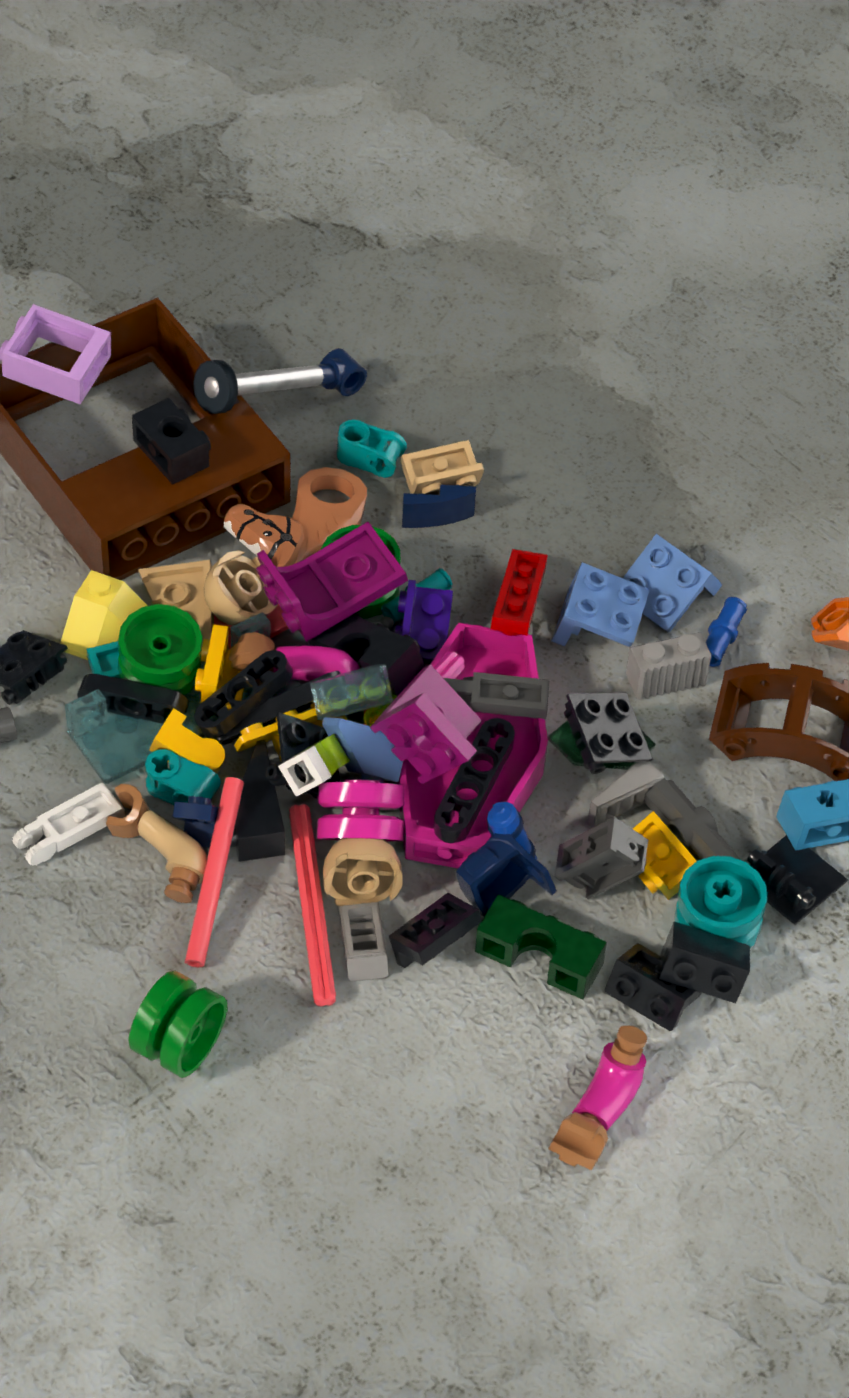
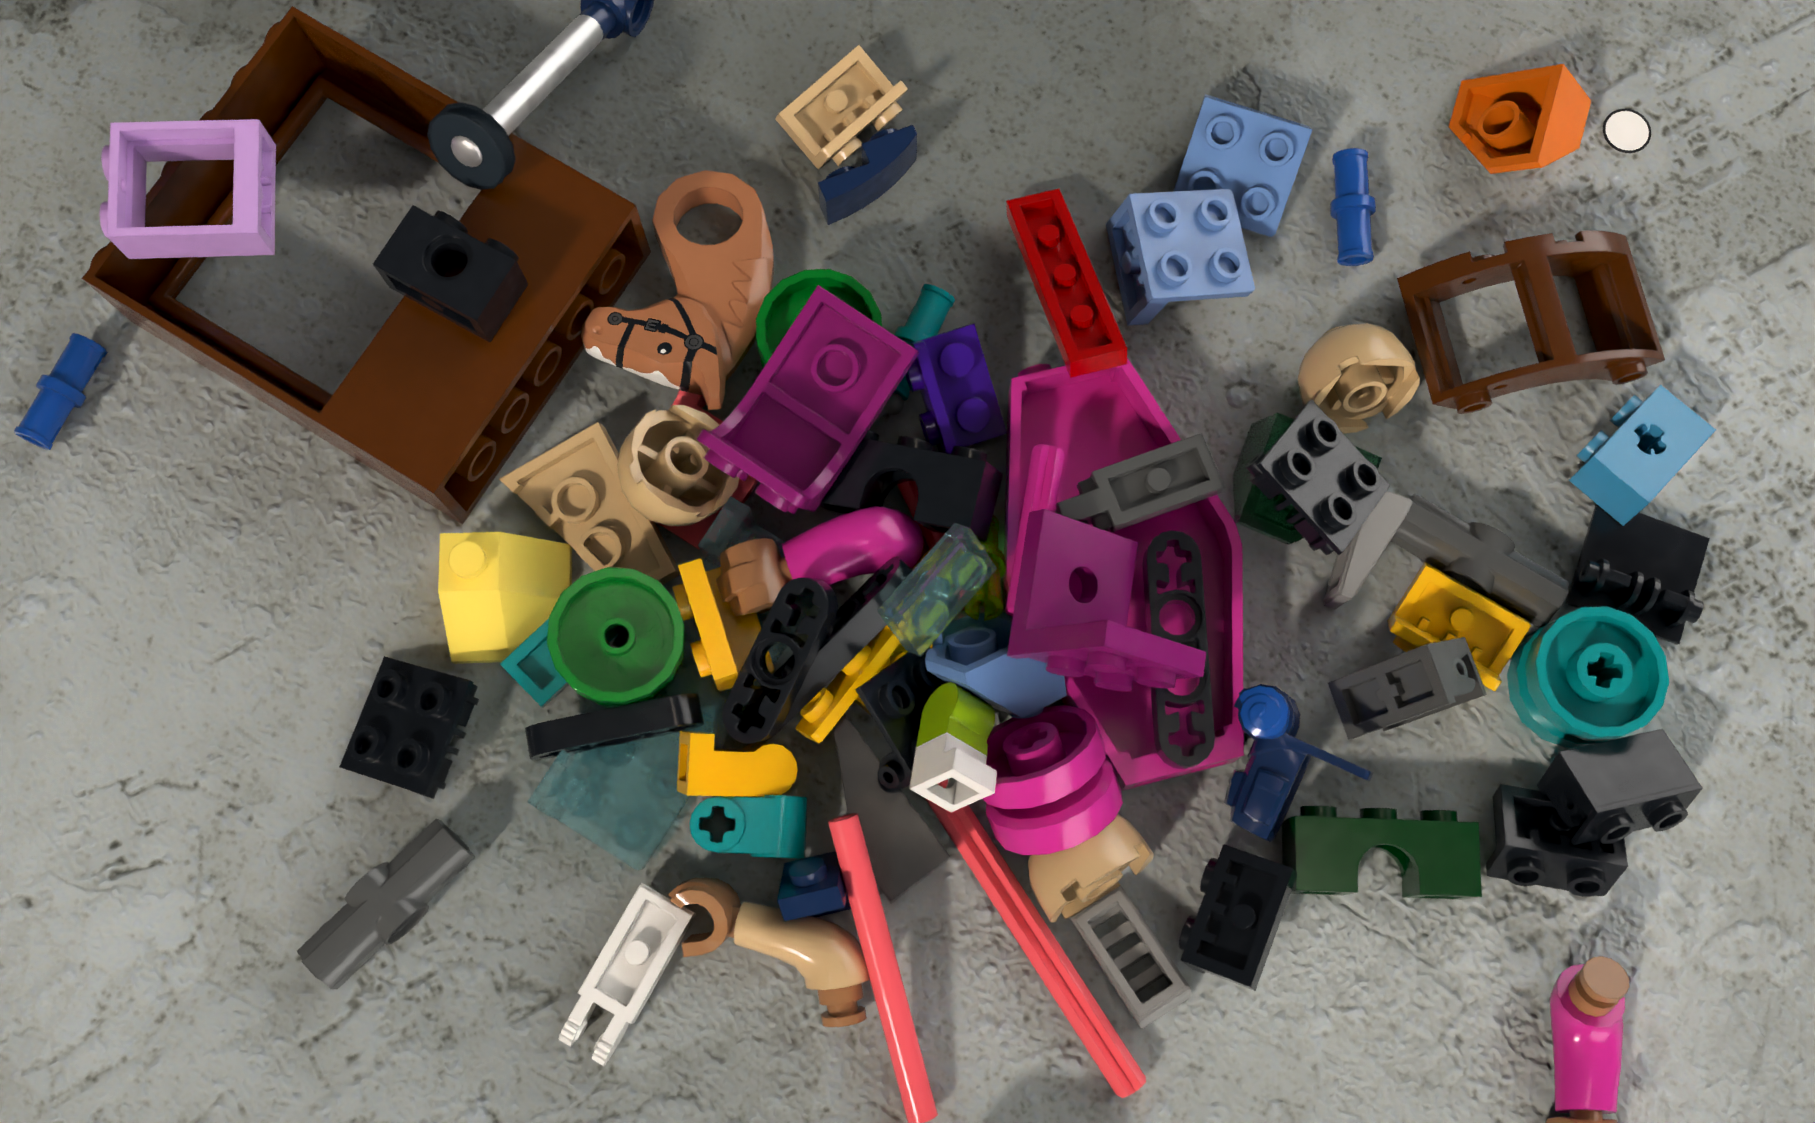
camera: 25 degrees left, 25 degrees up
(367, 447) = (726, 116): teal piece -> none
(668, 665) = (1316, 301): light grey brick -> none
(669, 708) = (1357, 374): none -> tan cylinder

